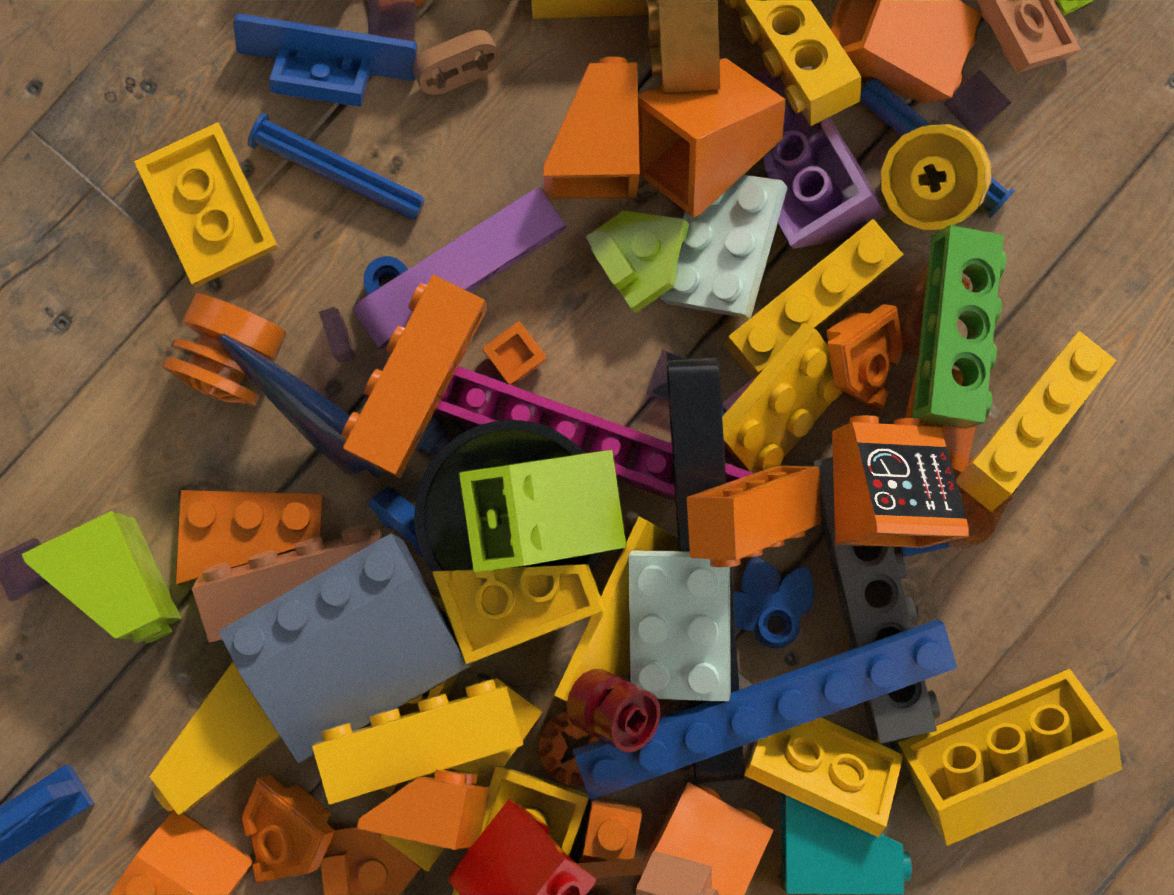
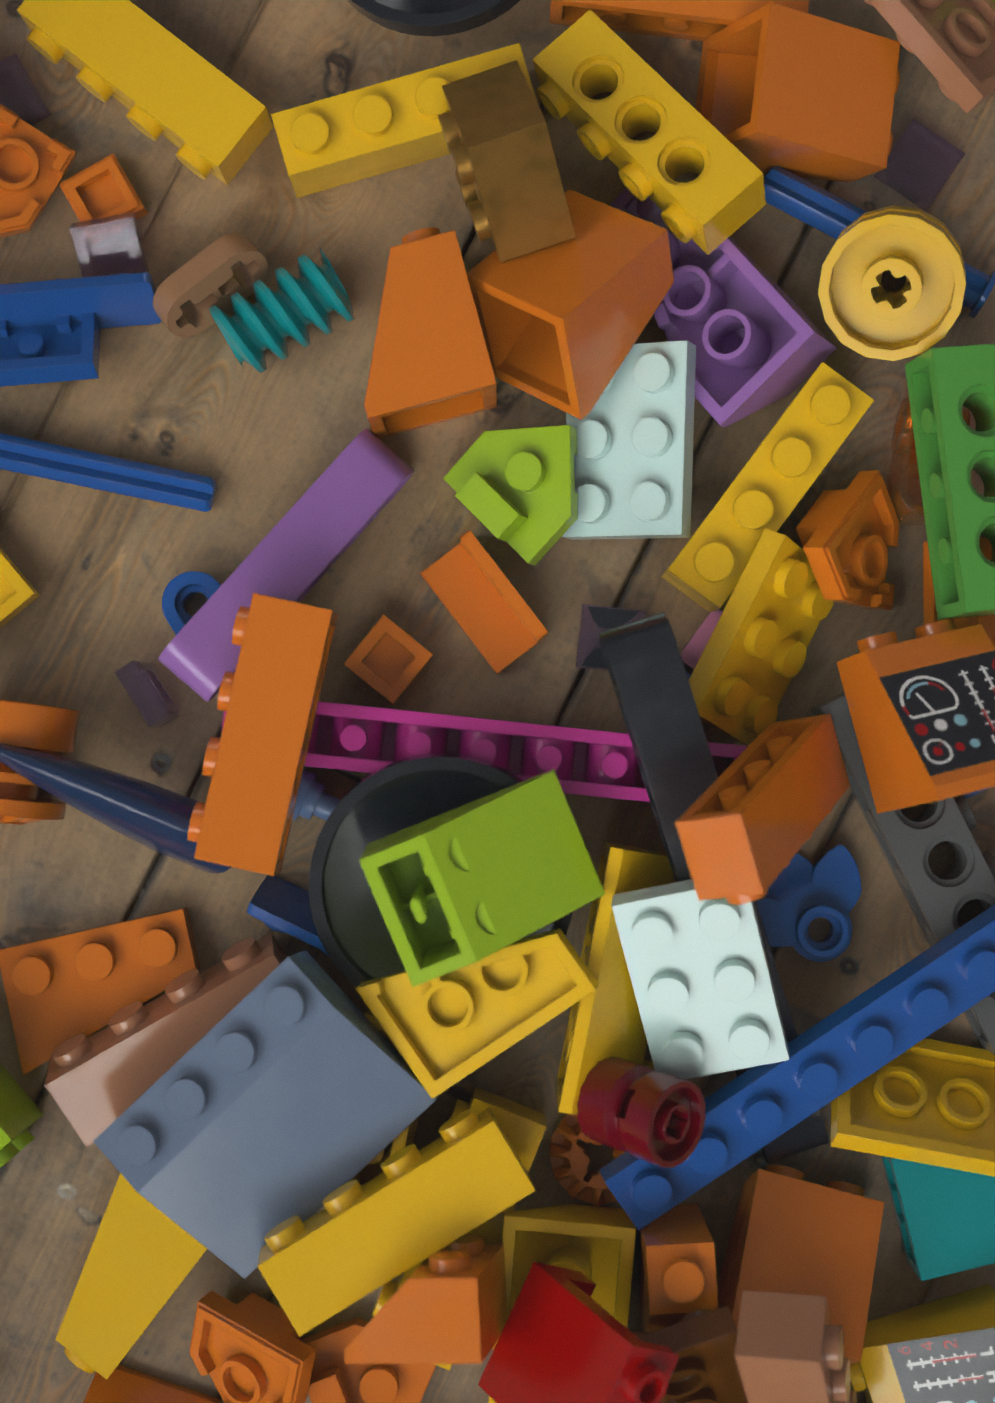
camera: 10 degrees left, 5 degrees up
(503, 93) = (284, 312): none -> teal piece
(593, 332) = (484, 603): none -> orange panel

